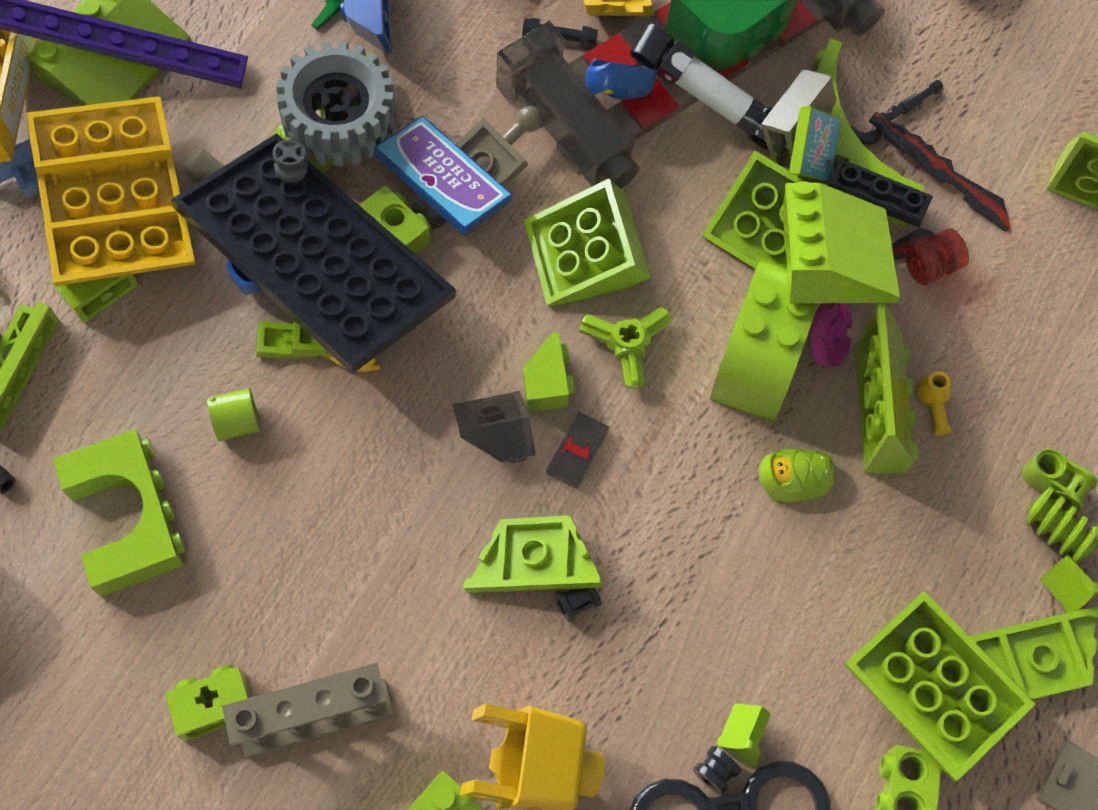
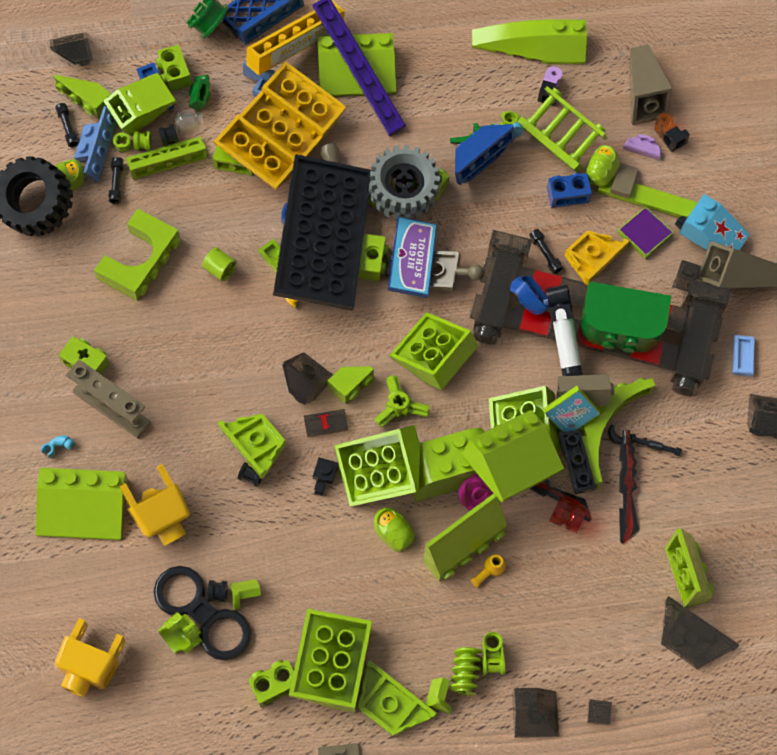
camera: 50 degrees right, 0 degrees up
(290, 160) = (362, 183): dark grey wheel -> none
(650, 503) = (324, 473): none -> black plate
(711, 418) = (380, 465): none -> lime slope

